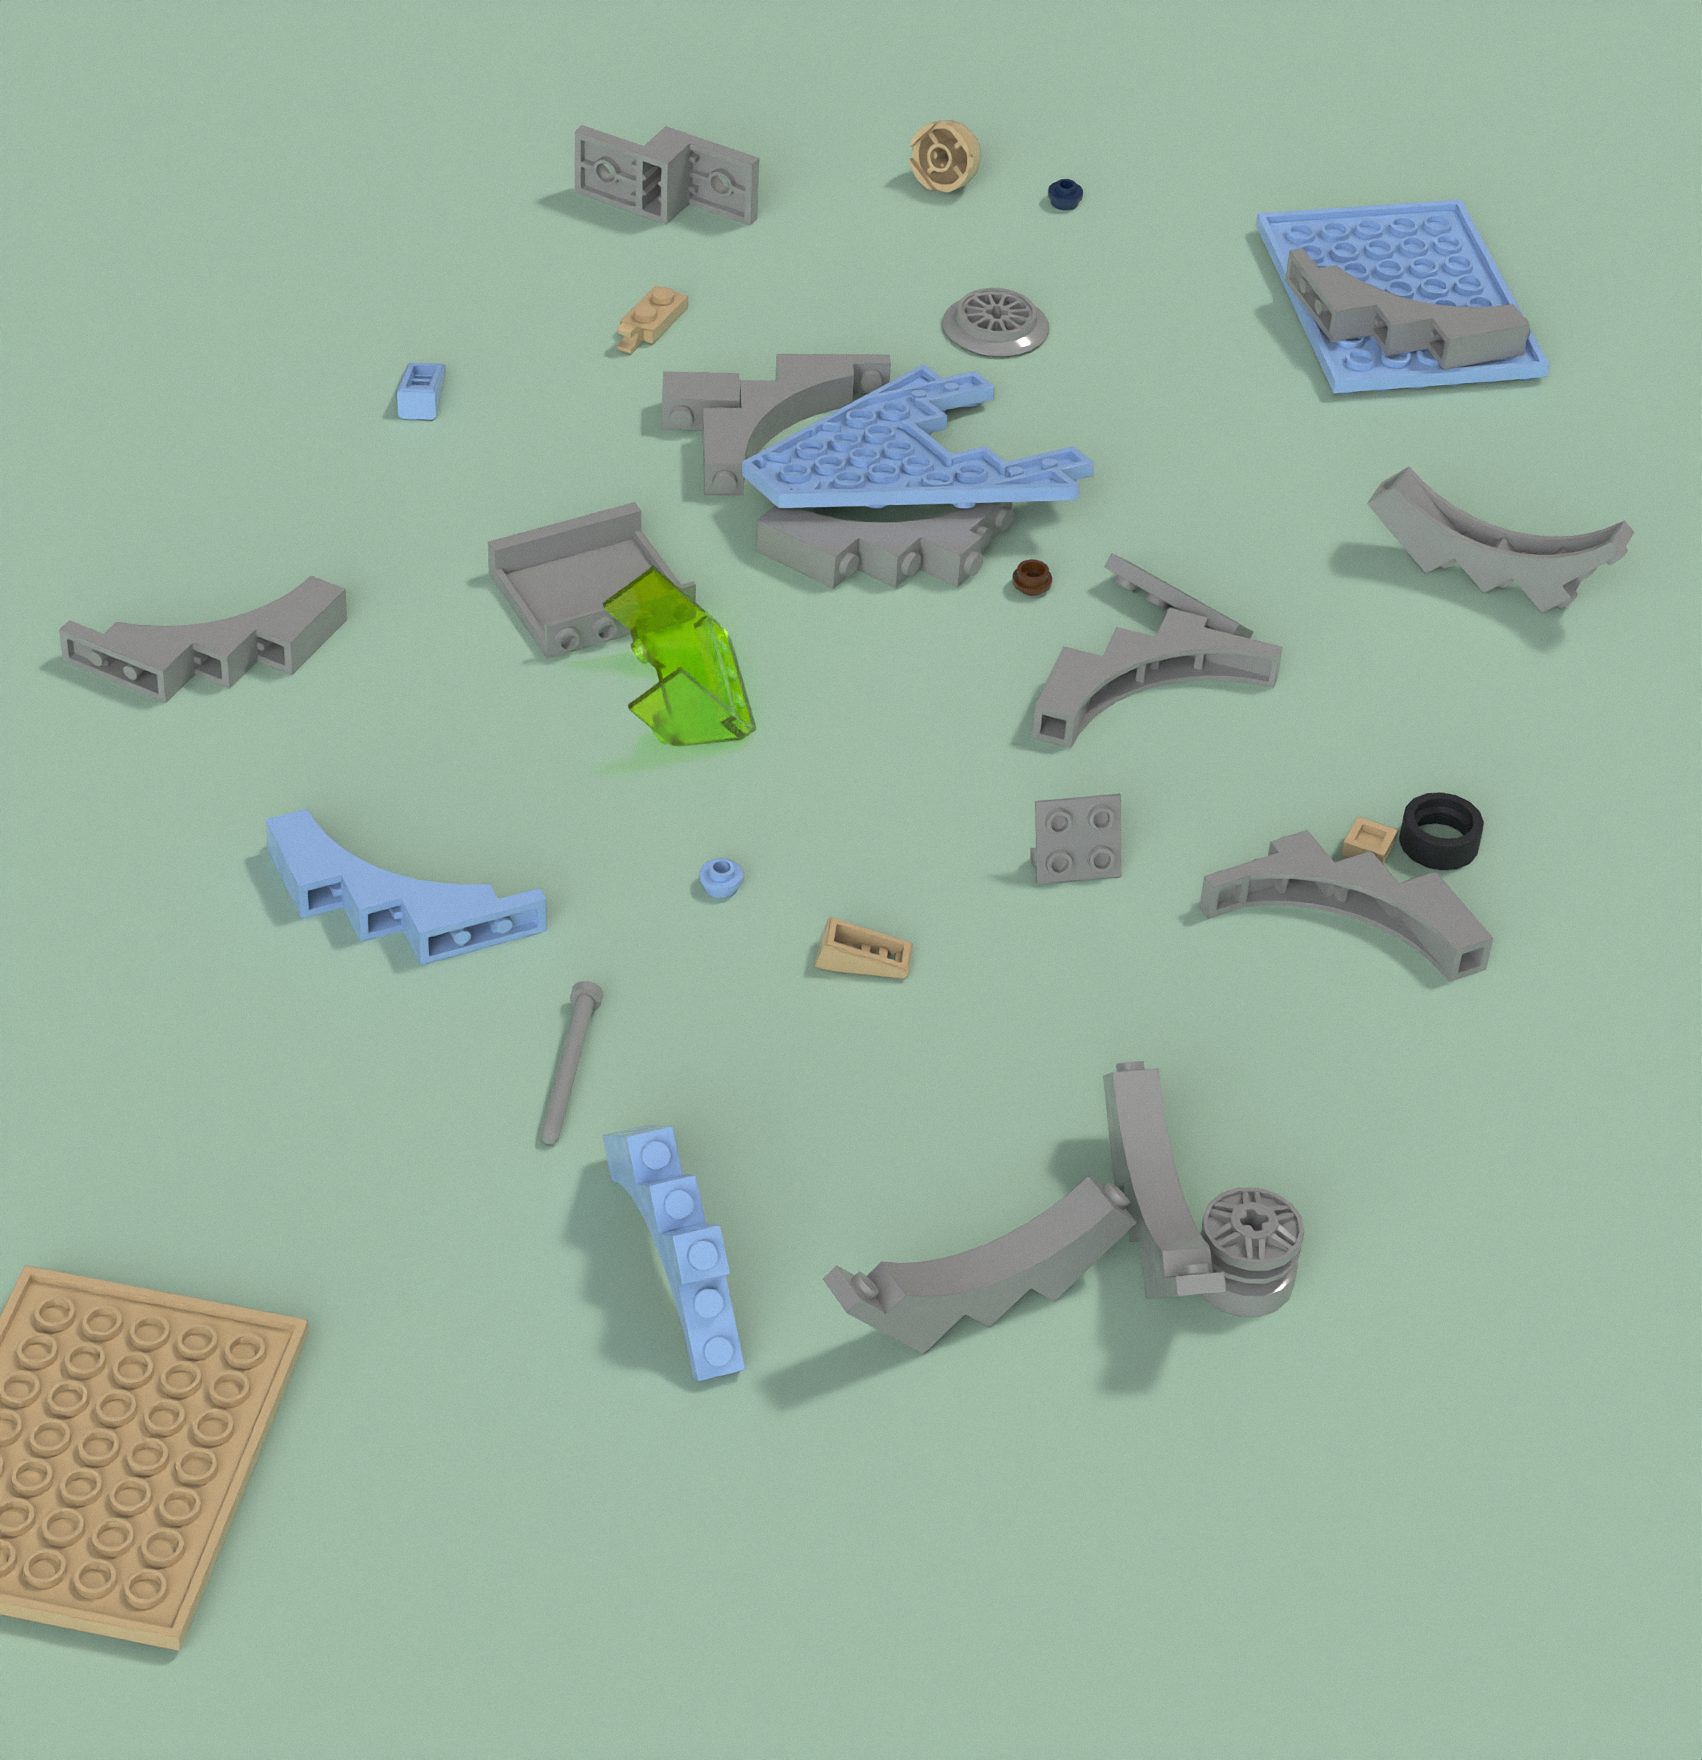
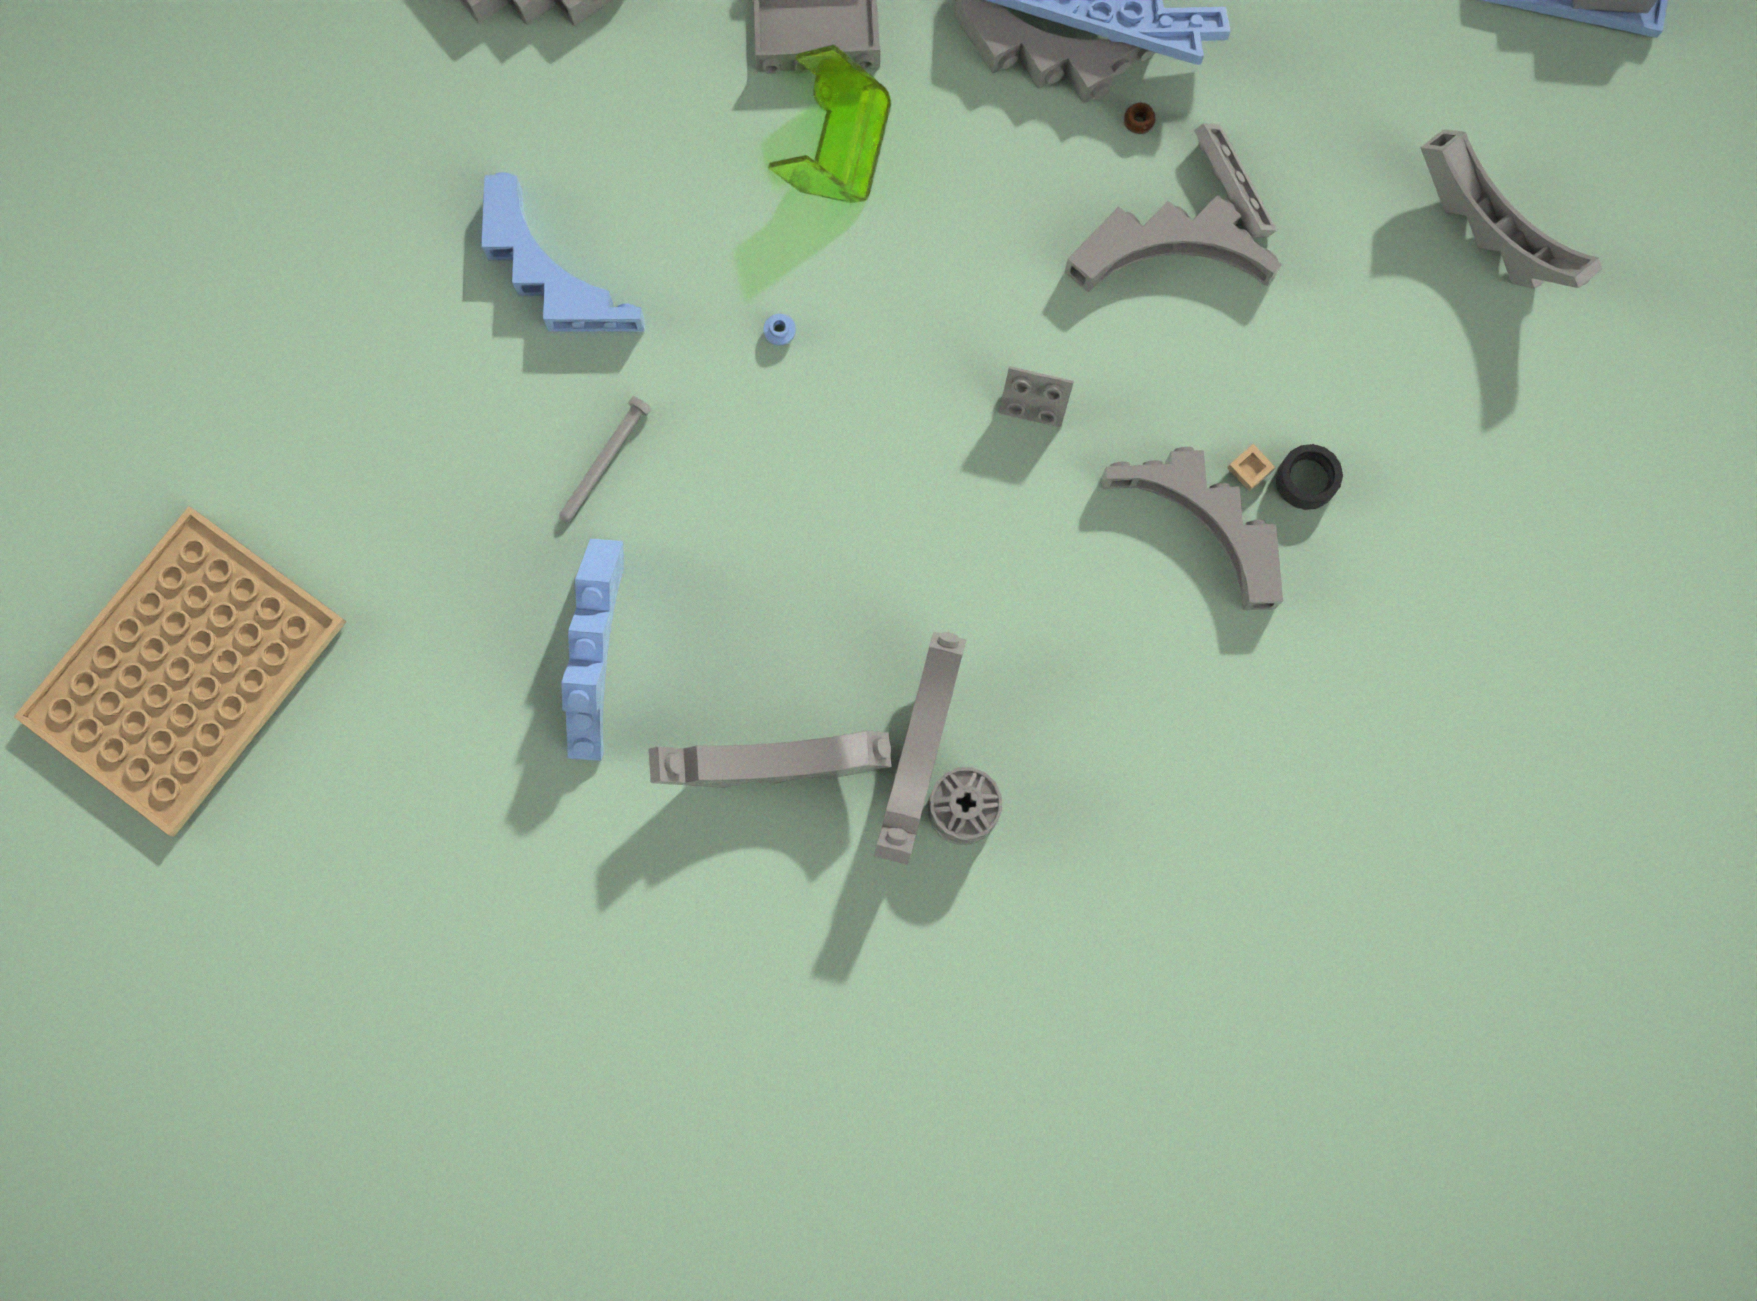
camera: 25 degrees right, 35 degrees up
(848, 949) = (829, 438): tan slope -> none

